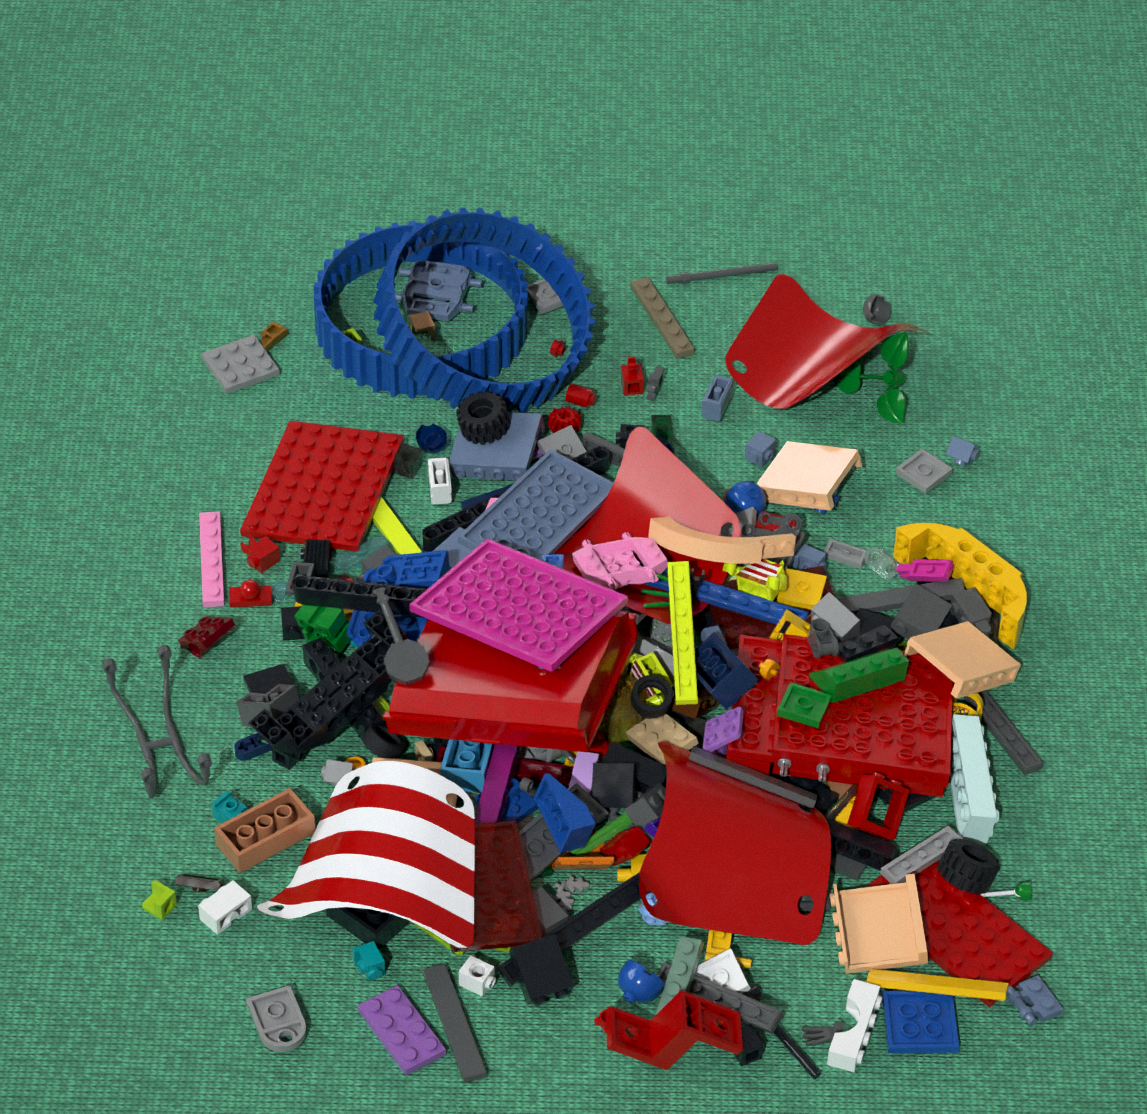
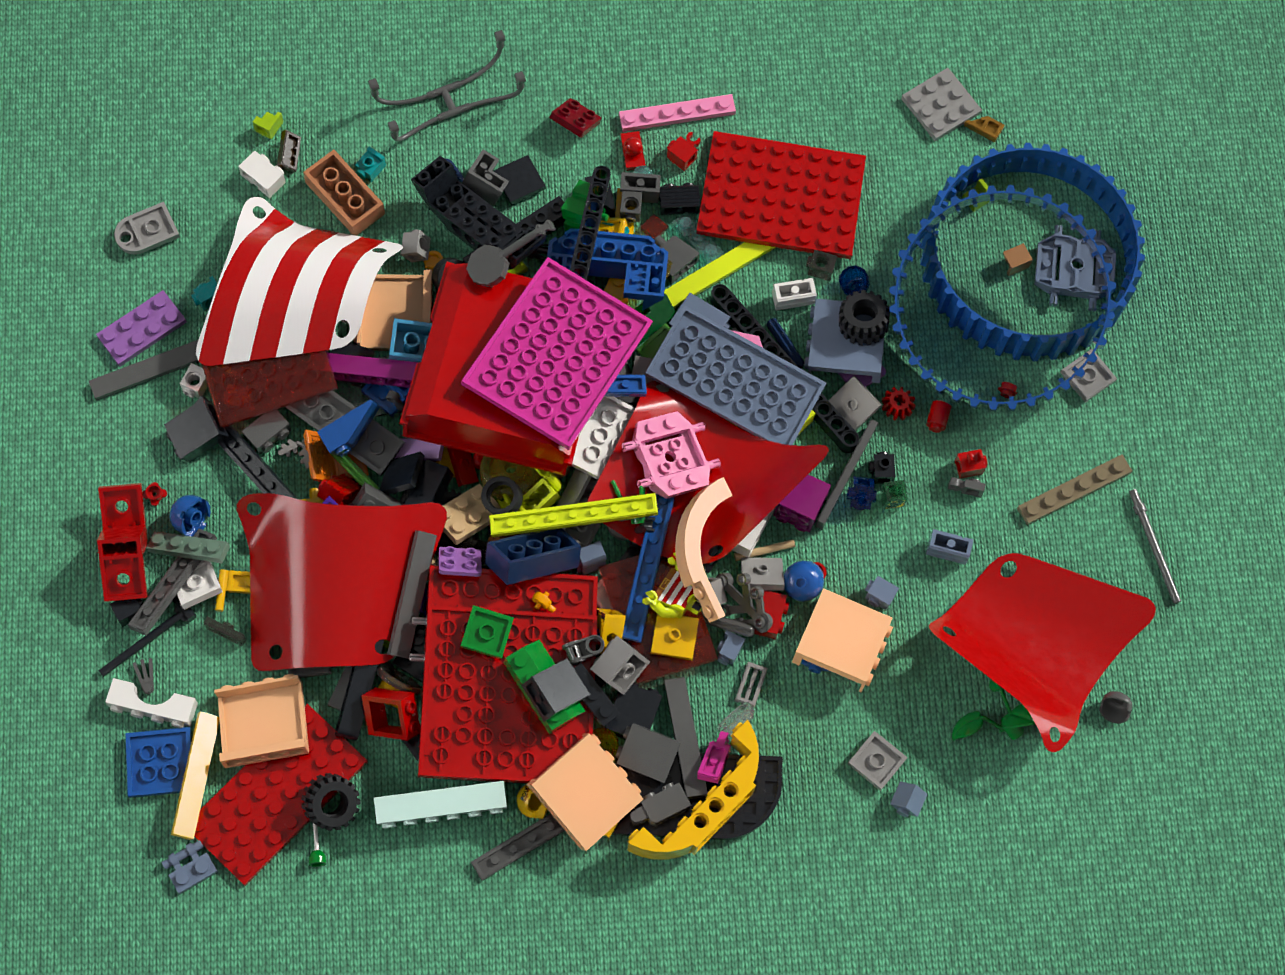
camera: 80 degrees right, 25 degrees up
(774, 958) = (225, 630): none -> clear smoke plate
(872, 648) = (555, 689): none -> panel
(919, 856) = (343, 758): light grey plate -> none

